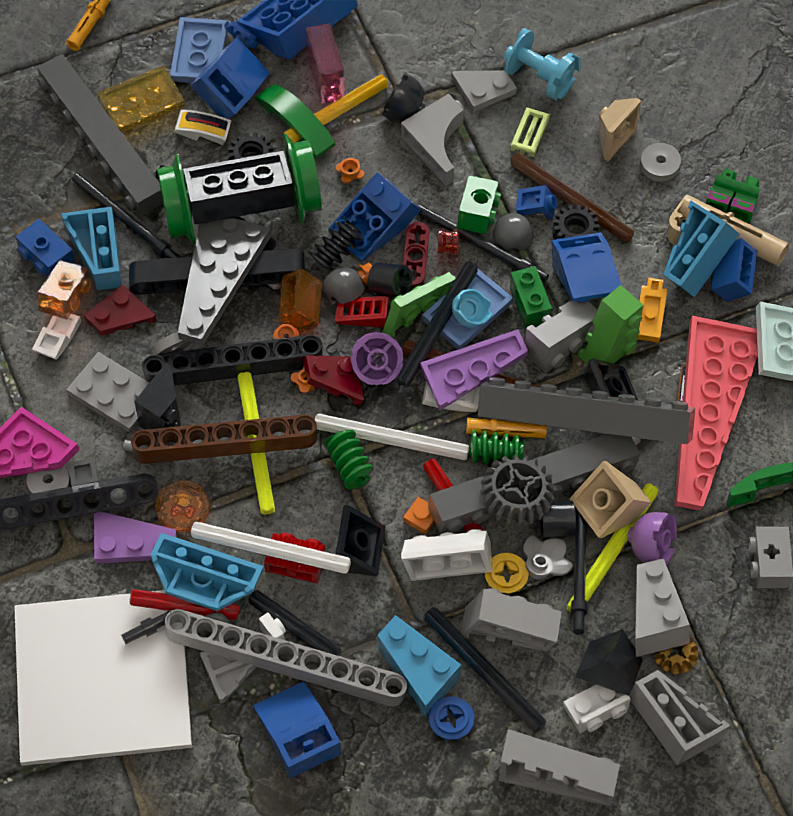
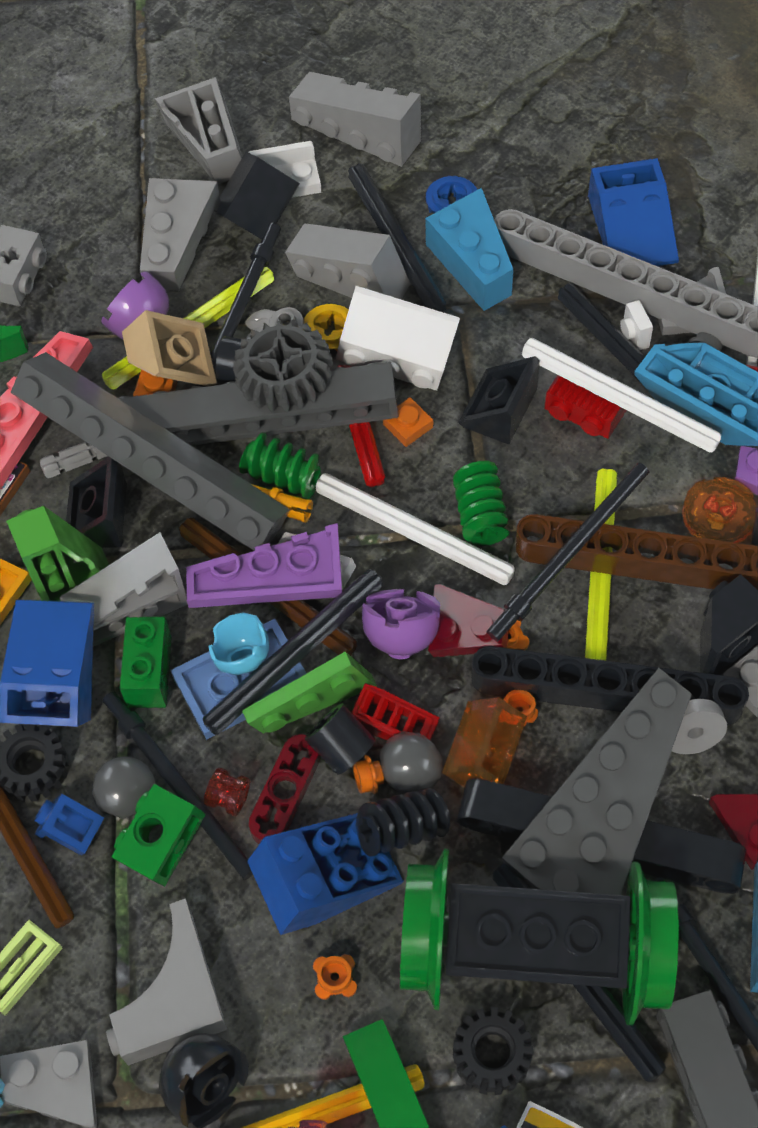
camera: 160 degrees left, 0 degrees up
(299, 376) = (520, 605): none -> black bar

